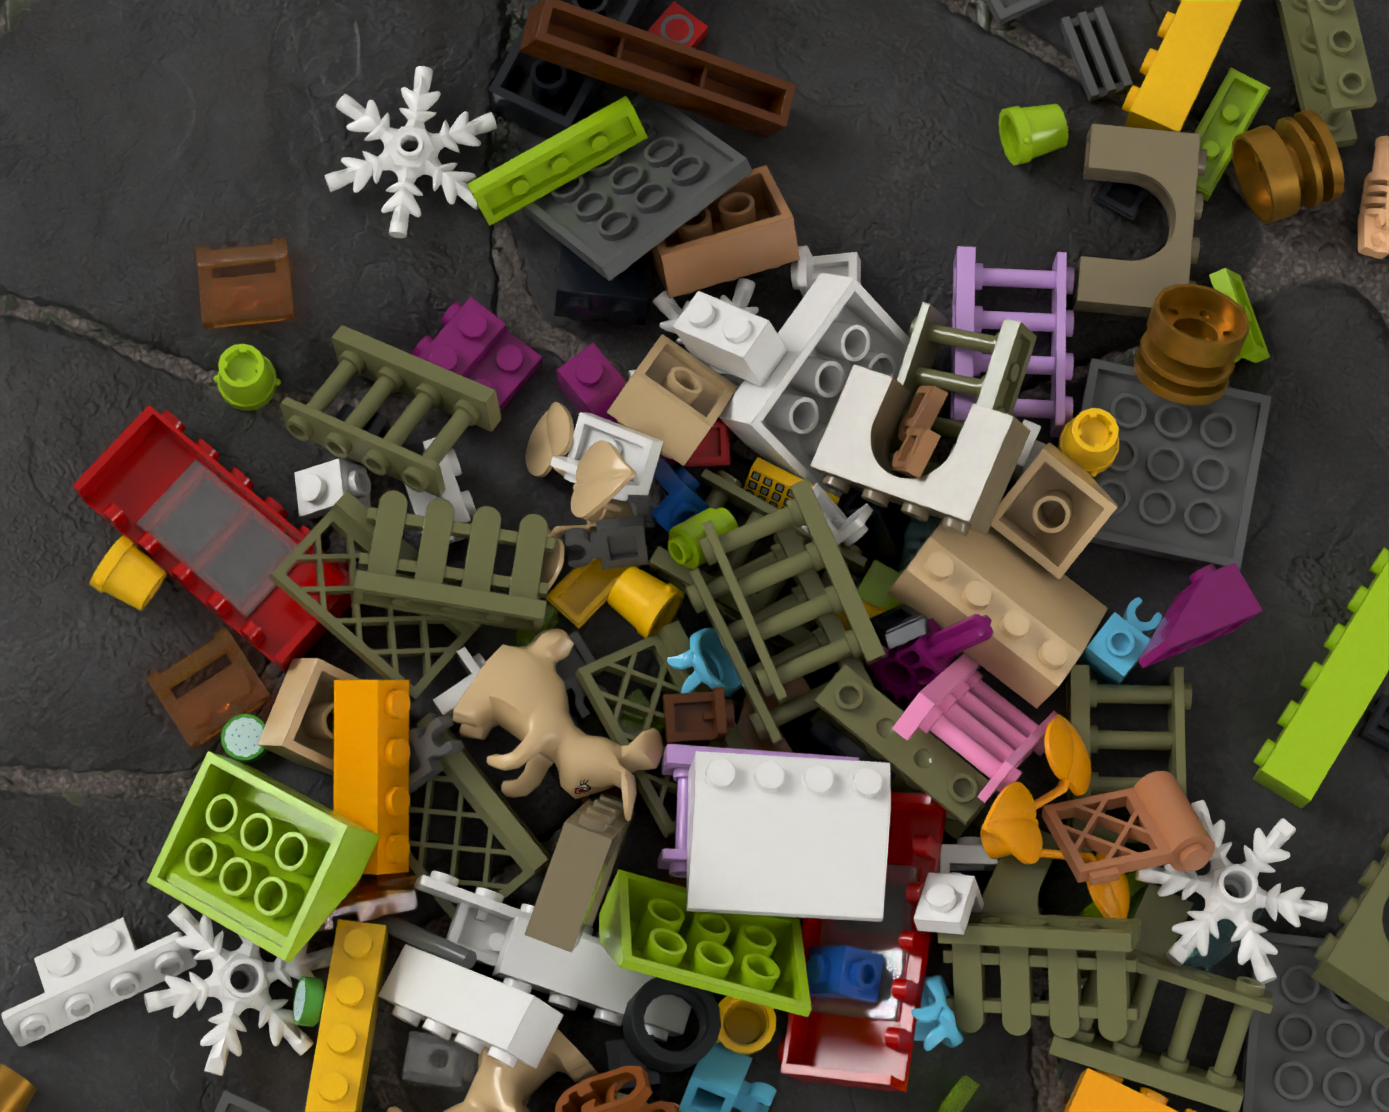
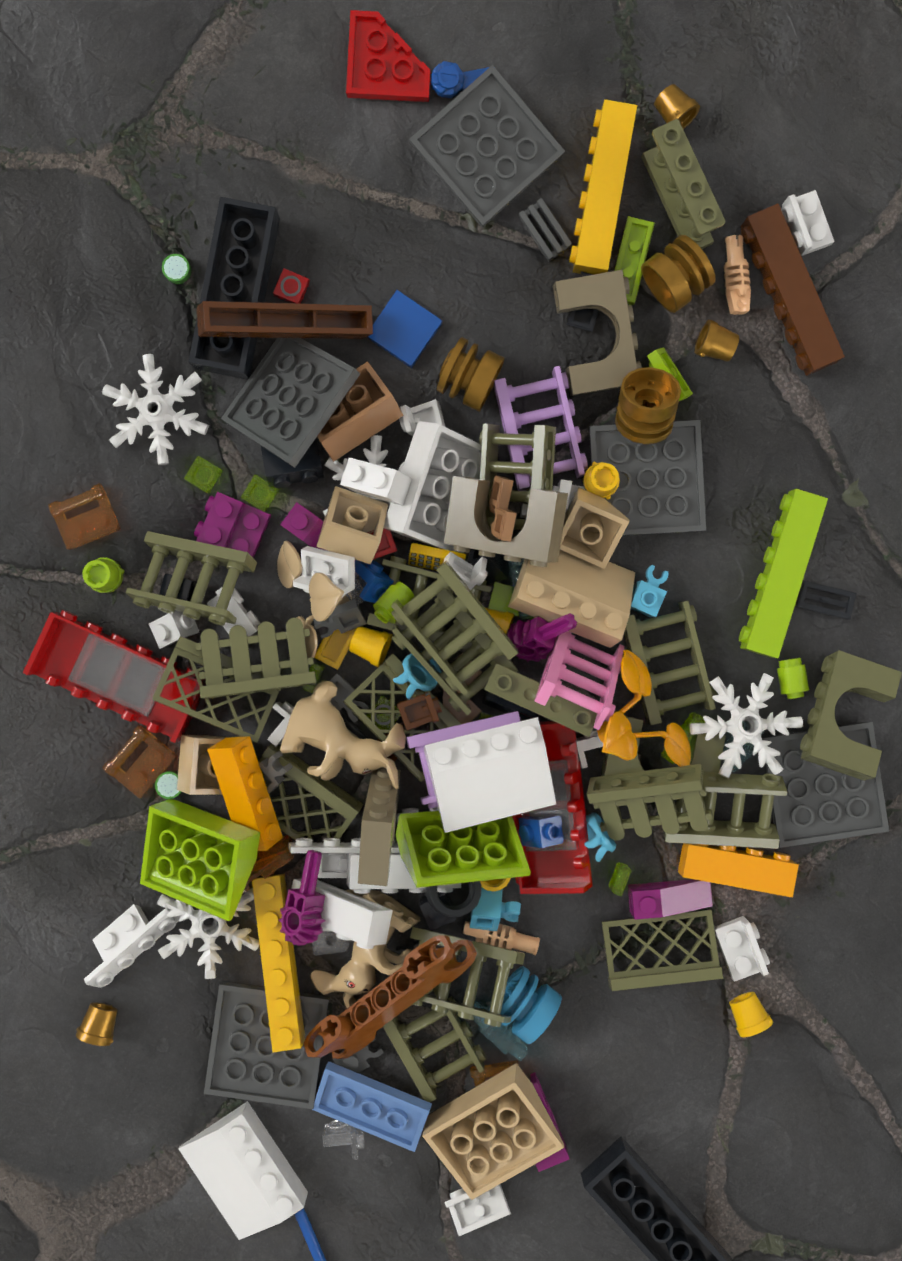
camera: 10 degrees left, 15 degrees up
(128, 574) = (72, 712): yellow piece -> none
(308, 1001) = (249, 927): bright green tile -> none
(414, 977) = (303, 907): none -> magenta gear
(426, 940) = (297, 873): dark grey bar -> none
(453, 270) = (203, 474): none -> clear neon green tile
(535, 322) = (259, 493): none -> clear neon green tile
(557, 160) = (243, 394): lime plate -> none
(836, 139) = (404, 328): none -> blue tile
(899, 626) = (520, 628): black tile -> none
(914, 221) = (470, 374): none -> pearl gold wheel
(947, 903) = (589, 780): white bracket -> none
(1032, 131) = (519, 292): lime piece -> none
(1162, 820) = (702, 702): nougat piece -> none
(1204, 611) = (690, 565): magenta slope -> none
(1326, 286) = (716, 342): none -> pearl gold piece
(1328, 845) = (792, 678): none -> lime brick

